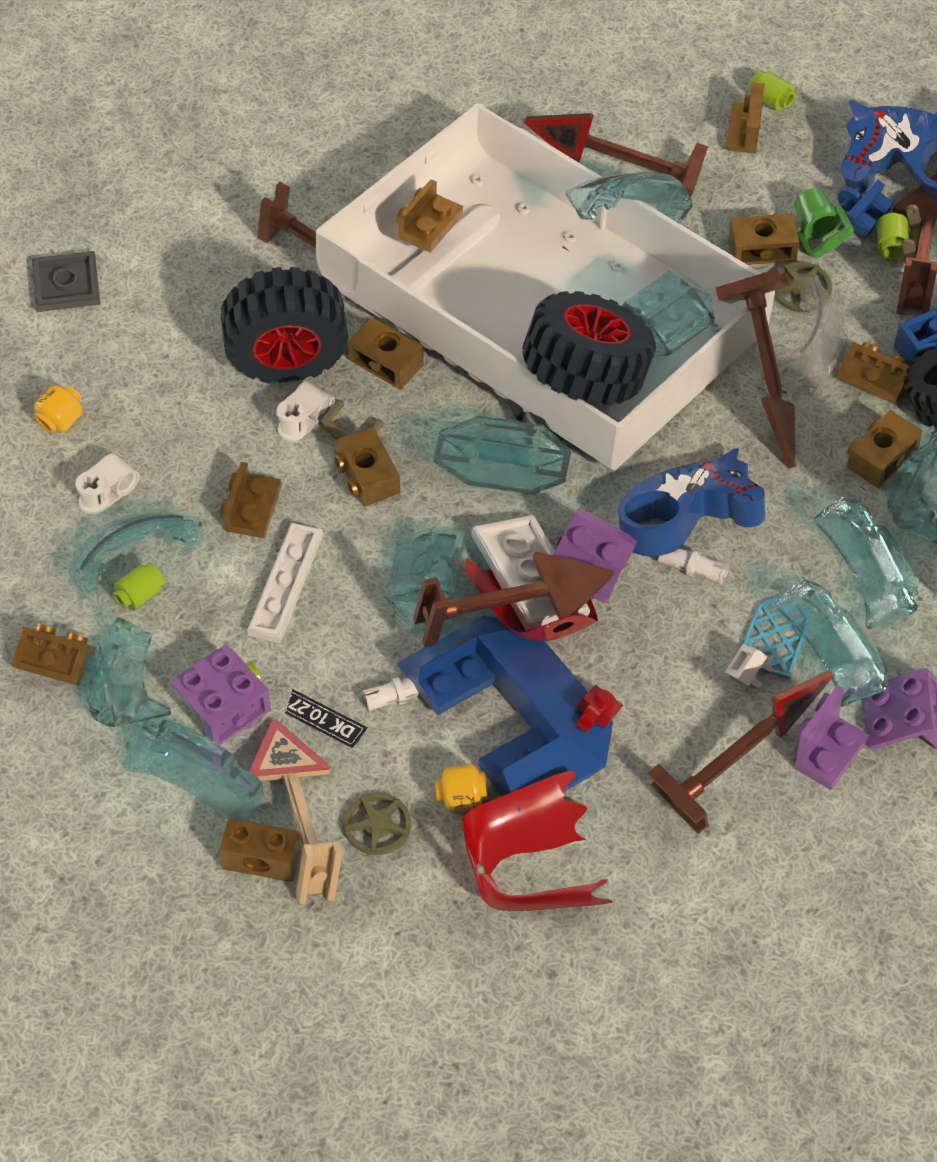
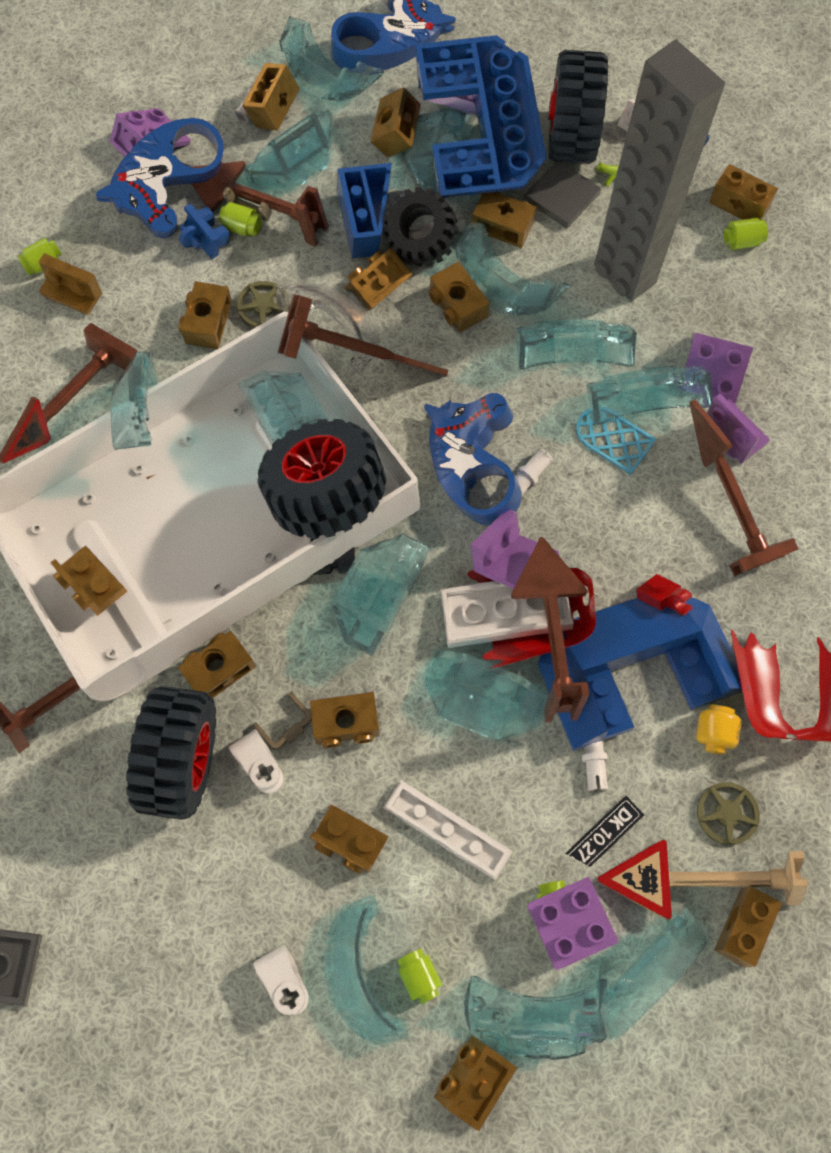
camera: 75 degrees left, 15 degrees up
(58, 408) = (173, 1011): yellow head -> none
(747, 664) = (647, 465): white tile -> none
(820, 220) = (199, 265): bright green piece -> none

